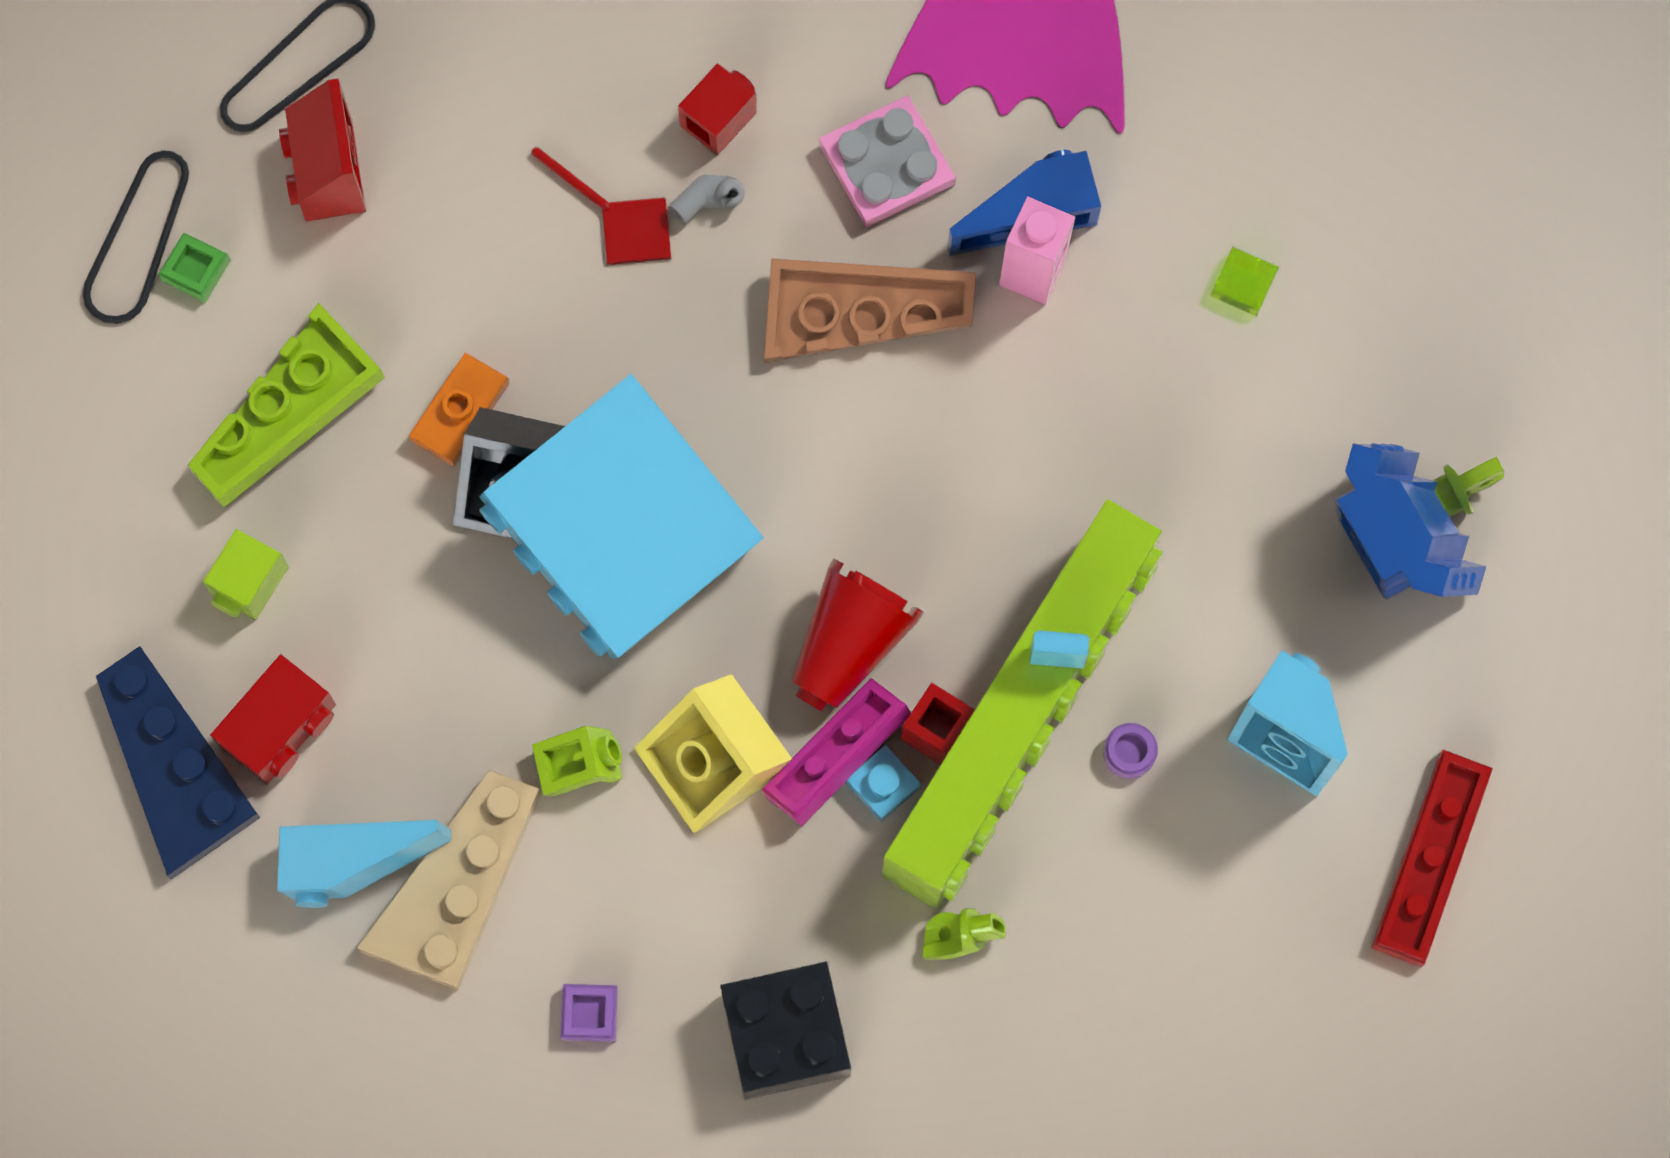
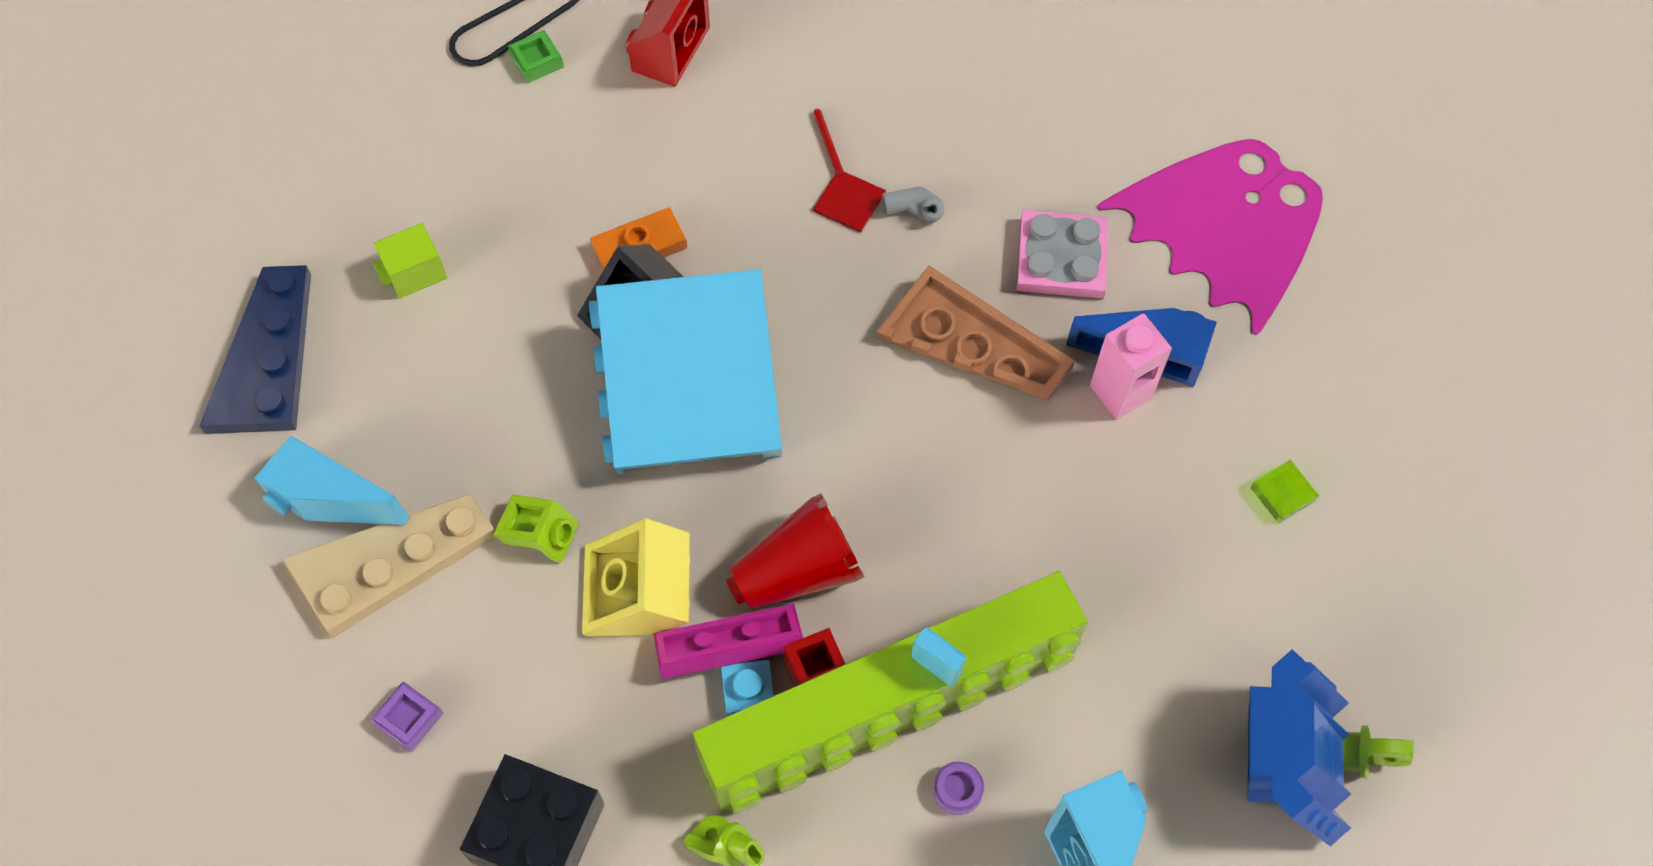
camera: 35 degrees right, 10 degrees down
(275, 720) = (351, 366): red brick -> none
(300, 395) = (541, 171): lime wing -> none
(718, 108) = (963, 149): red brick -> none

